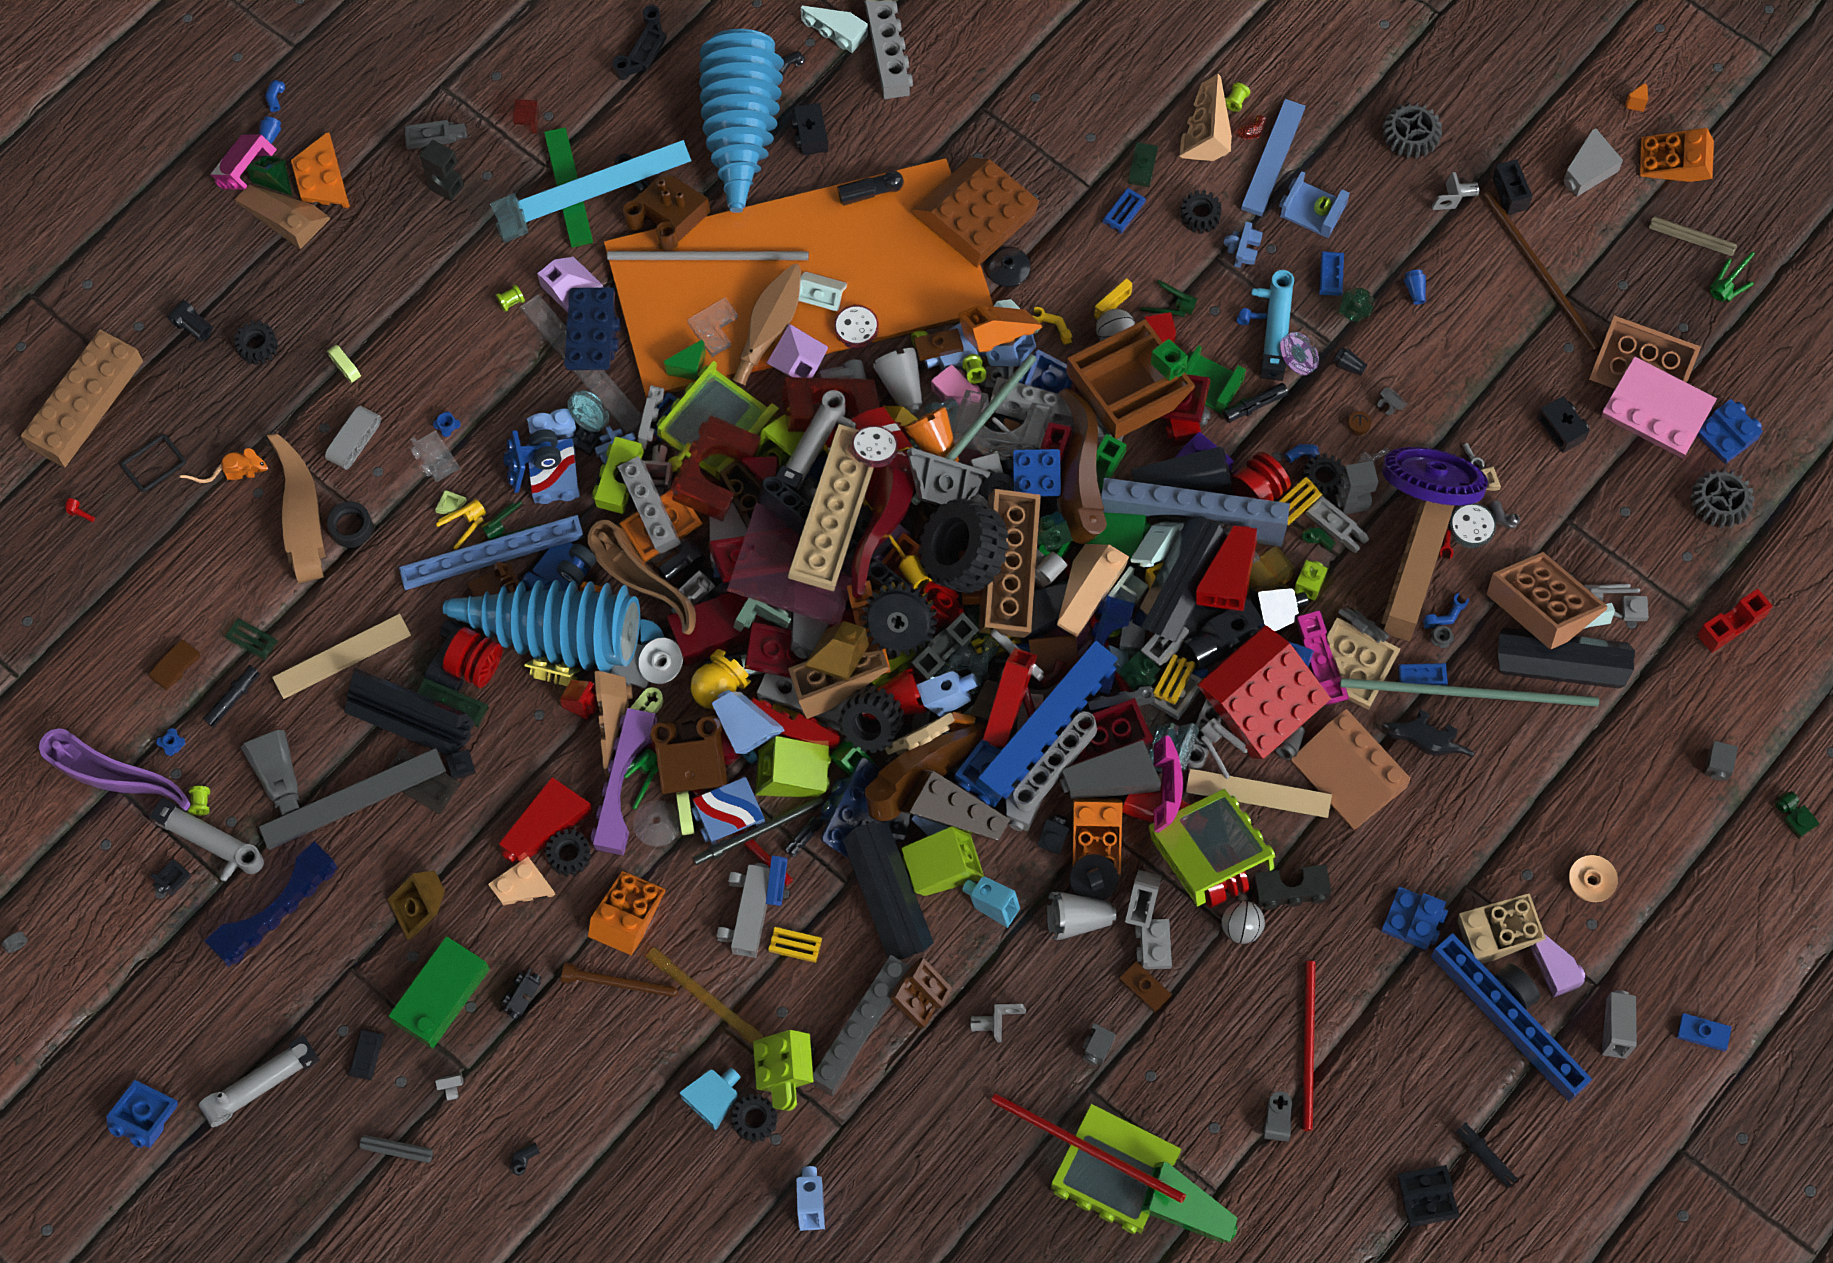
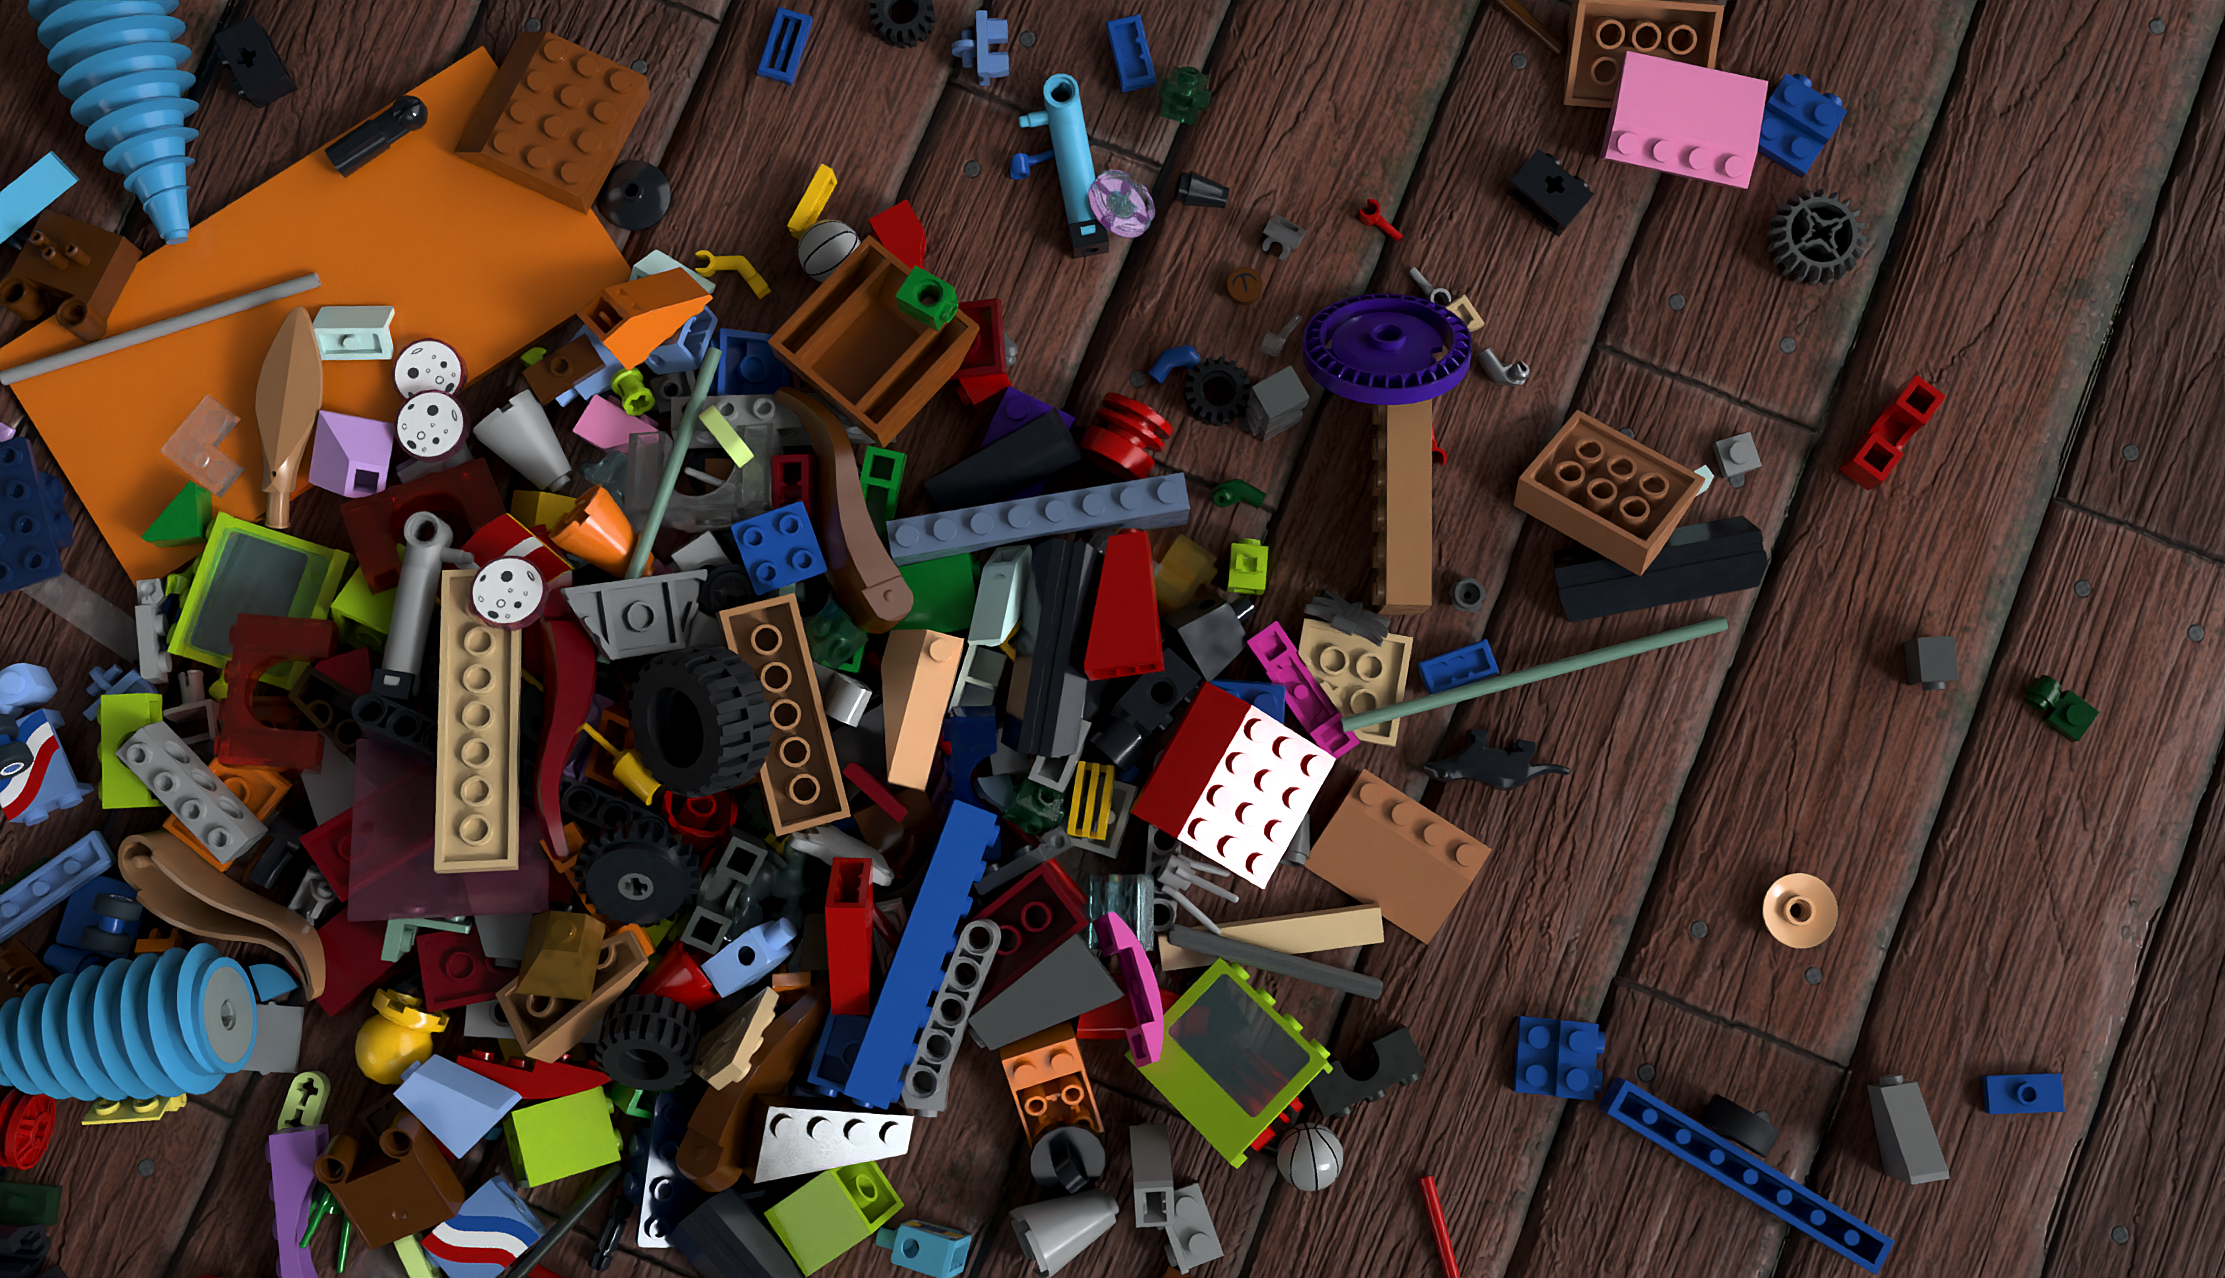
camera: 20 degrees left, 15 degrees up
(580, 698) = (196, 1132): red slope -> none
(586, 441) = (69, 695): black tile -> none
(588, 411) = (53, 653): clear light blue tile -> none
(613, 701) = (241, 1121): medium nougat wedge -> none
(652, 657) = (291, 1032): white dish -> none
(672, 395) = (179, 582): none -> lime hand
(850, 353) = (432, 426): none -> white tile
(1025, 403) = (726, 436): none -> yellowish green beam
(1048, 627) = (876, 791): none -> dark red tile
(1054, 833) = (987, 1102): black bracket -> none
(1185, 302) = (924, 173): dark green plant -> none
(1223, 381) = (1013, 281): green panel -> none
(1247, 406) = (1068, 314): black pin -> none
(1257, 805) = (1274, 961): none -> dark grey axle
(1306, 481) = (1207, 421): yellow tile -> none
(1336, 523) = (1257, 462): light grey hinge -> none
(1416, 285) = (1264, 34): blue cone -> none
(1433, 620) = (1470, 562): blue arm -> none
(1451, 408) = (1378, 220): none -> red hand
(1472, 525) = (1466, 405): white tile -> none
(1501, 928) = (1691, 1041): tan slope -> none
(1557, 967) = (1791, 1071): lavender slope -> none
(1598, 591) = (1679, 451): light grey plant -> none

